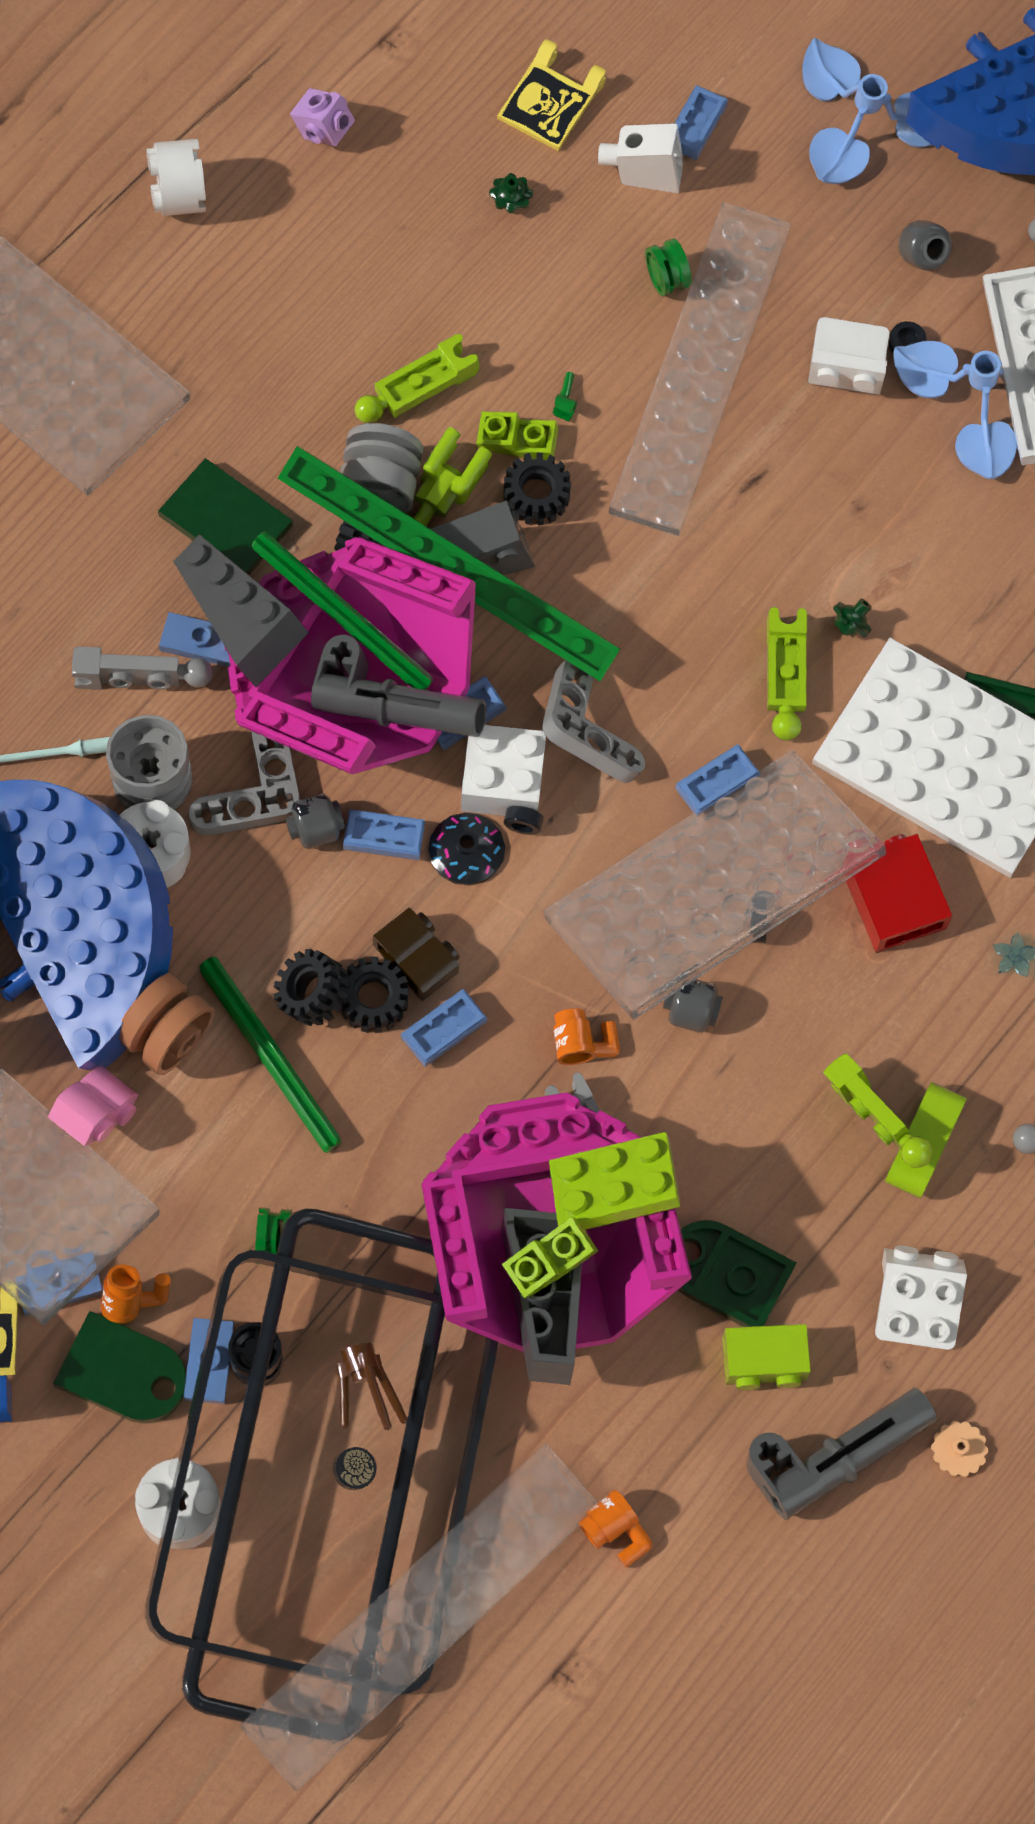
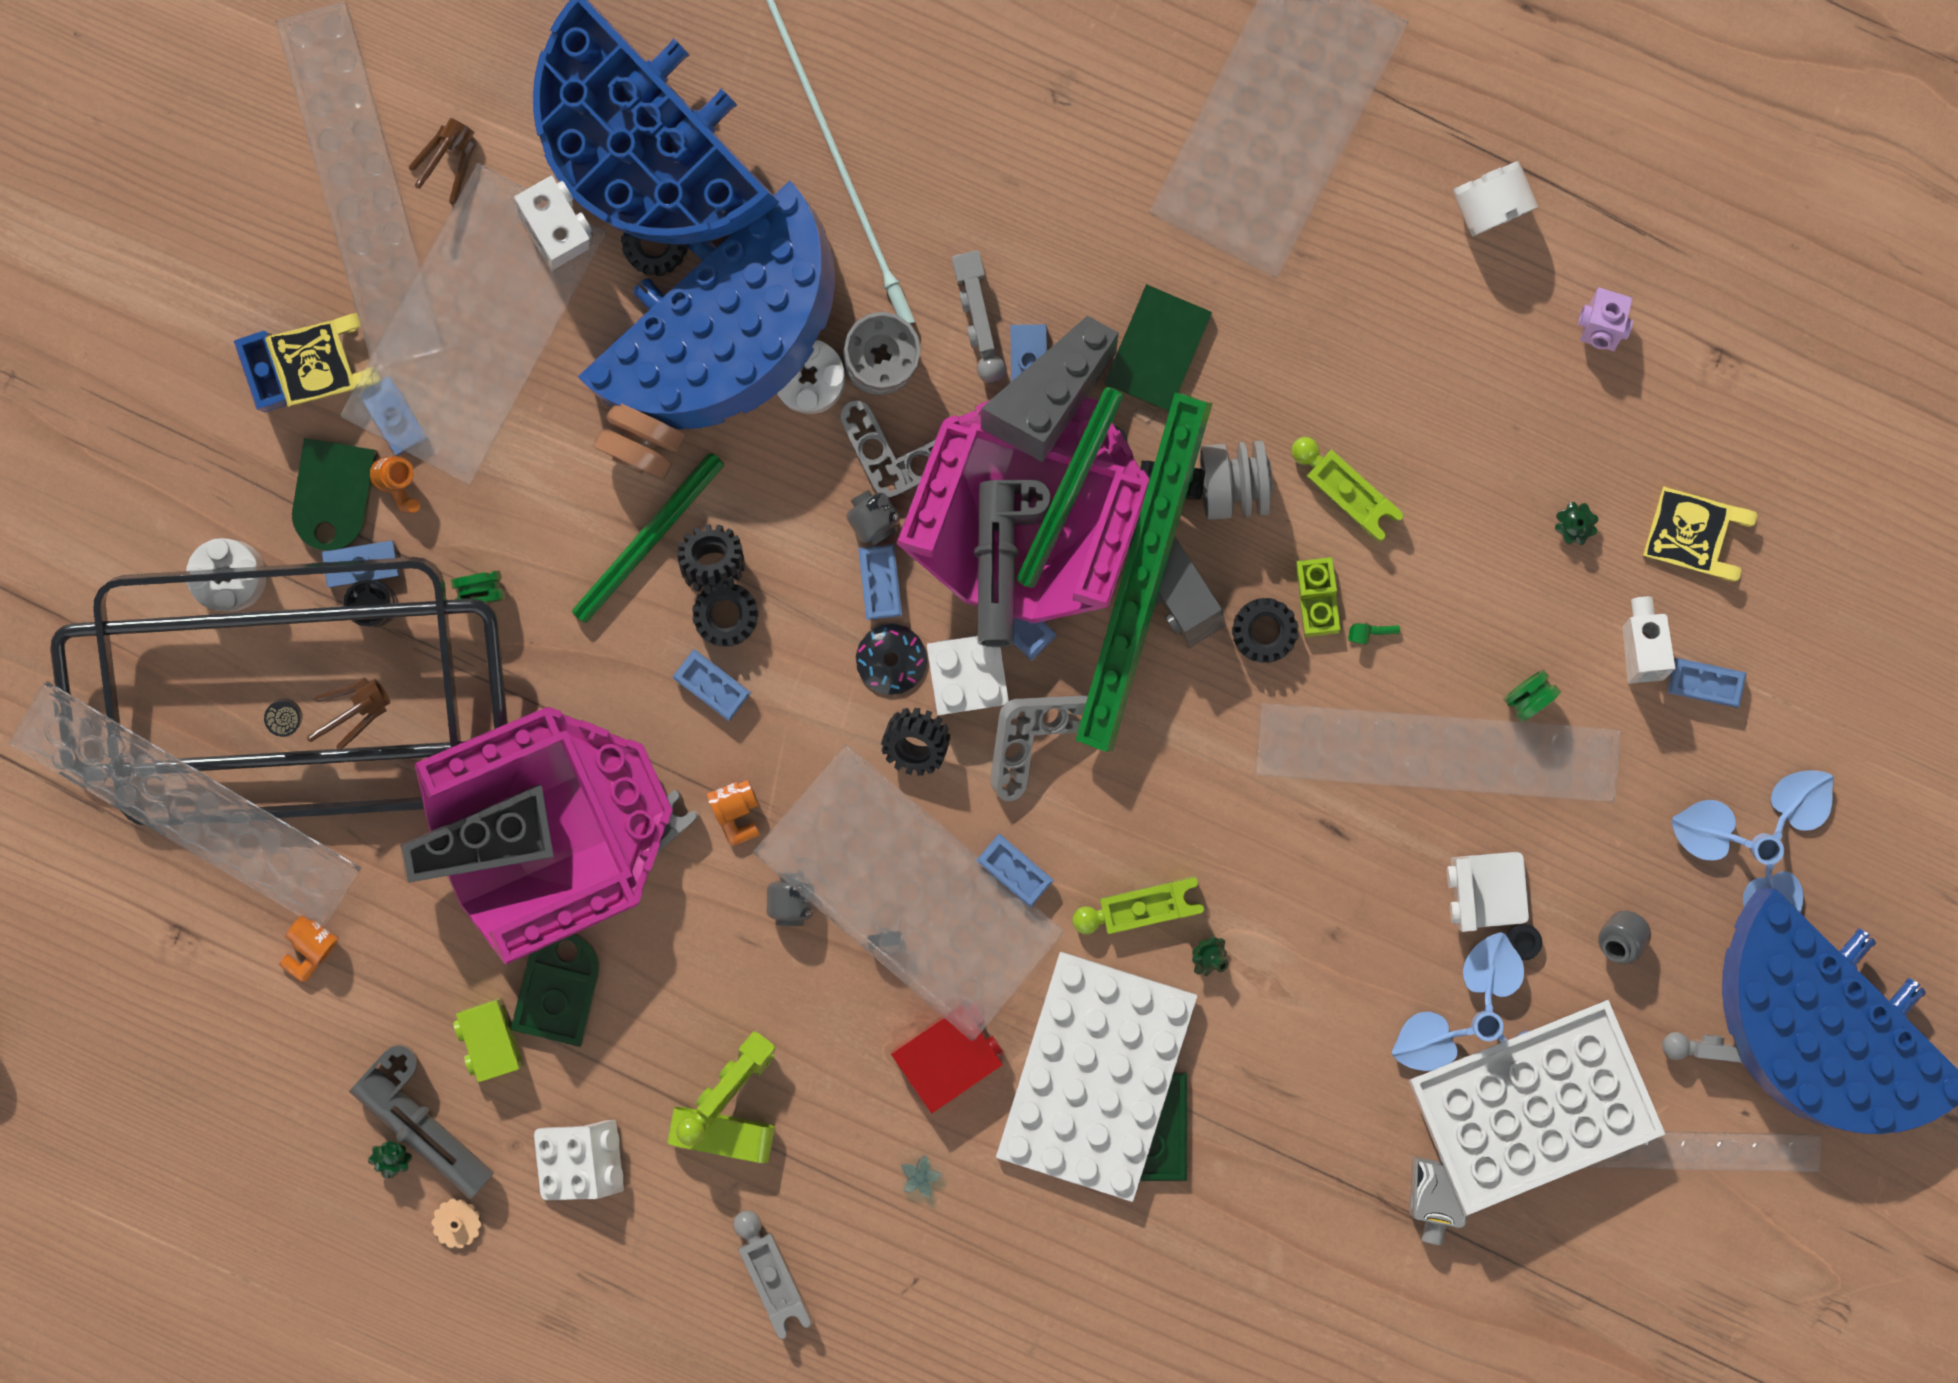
camera: 80 degrees right, 20 degrees up
(94, 1106) = (550, 400): bright pink brick -> none
(417, 952) = (773, 642): dark brown brick -> none
(445, 484) = (1243, 543): lime plant -> none
(523, 820) = (926, 699): black tile -> none
(542, 830) = (919, 727): none -> black tyre
(550, 1257) = (497, 837): lime slope -> none
(615, 1182) = (583, 875): lime plate -> none
(872, 1497) = (390, 1159): none -> dark green plant

